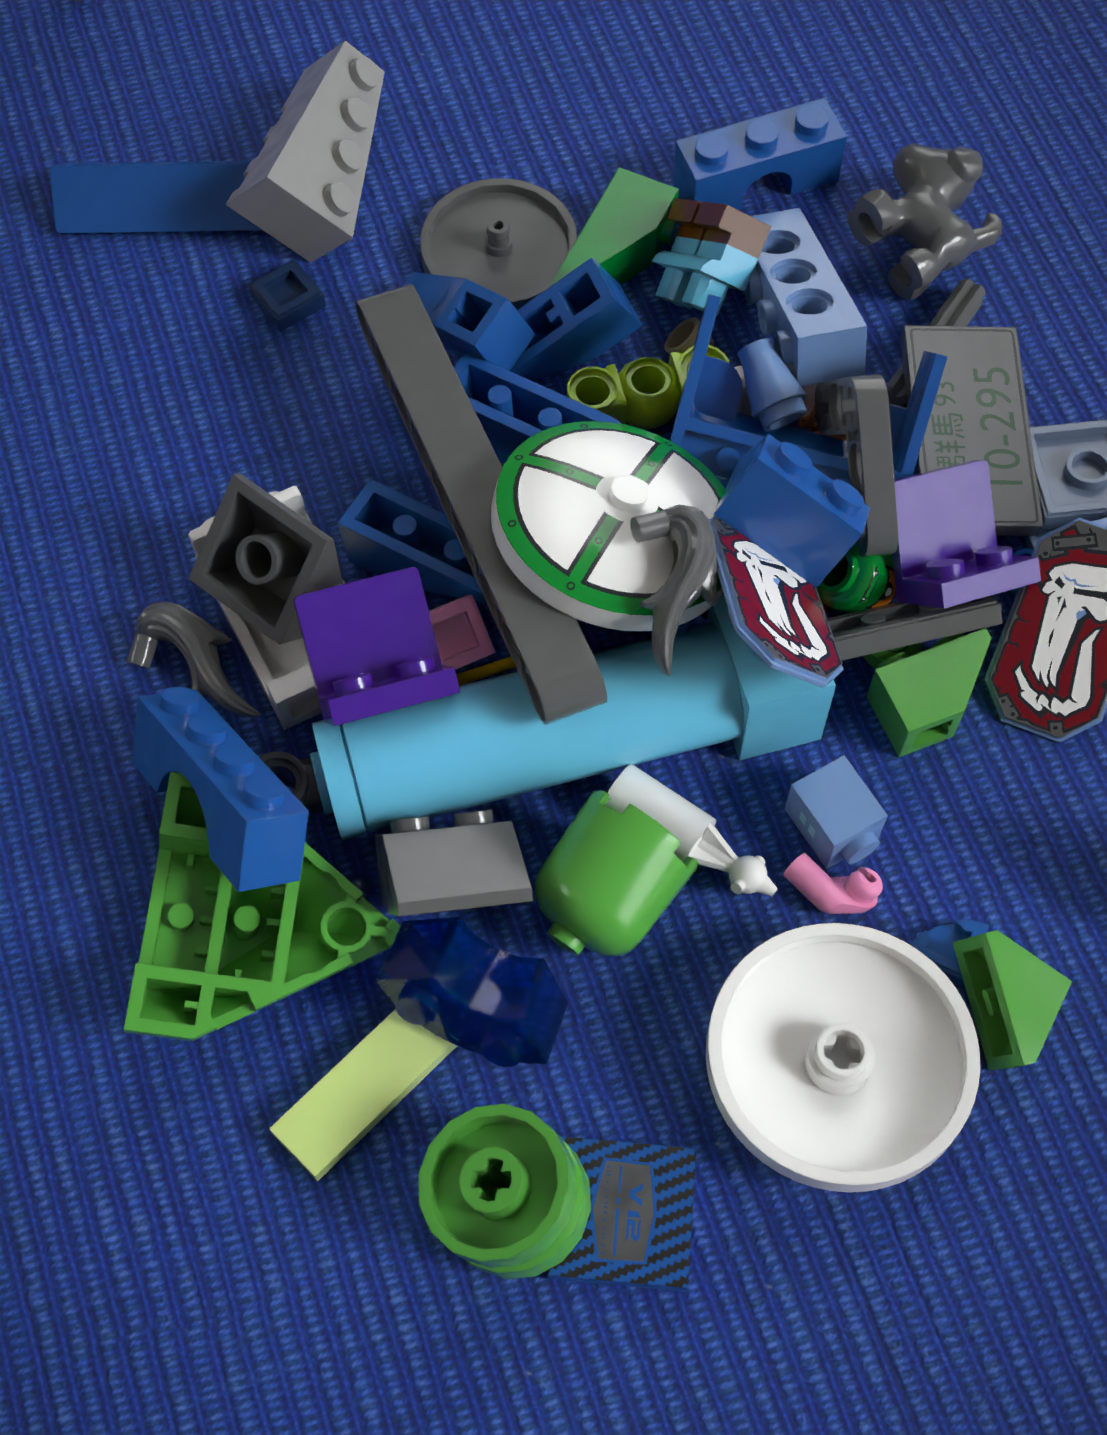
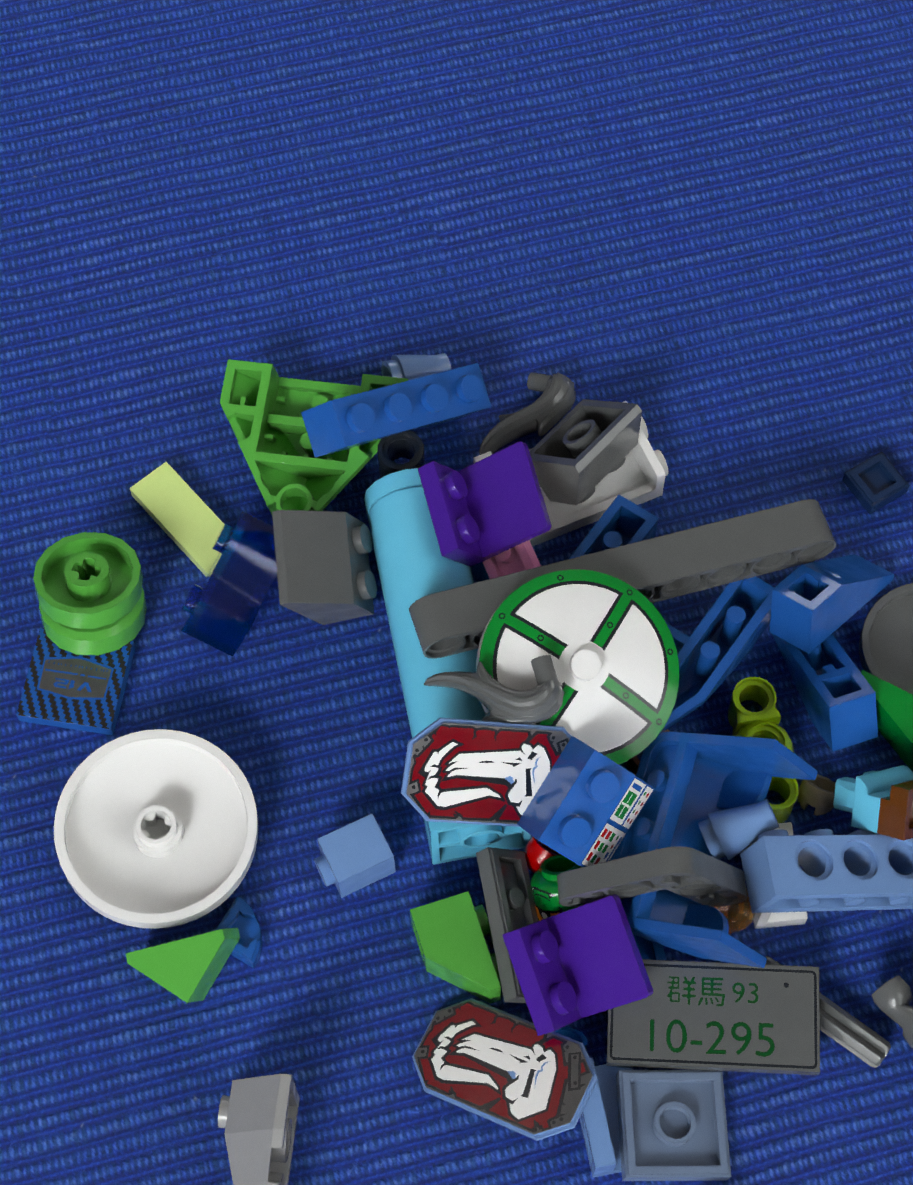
camera: 95 degrees right, 0 degrees up
(127, 806) = (415, 365): none -> medium blue cone
(609, 879) = (312, 679): bright green cylinder -> none
(691, 827) = (353, 741): white wheel -> none
(835, 894) = (294, 852): bright pink arm -> none

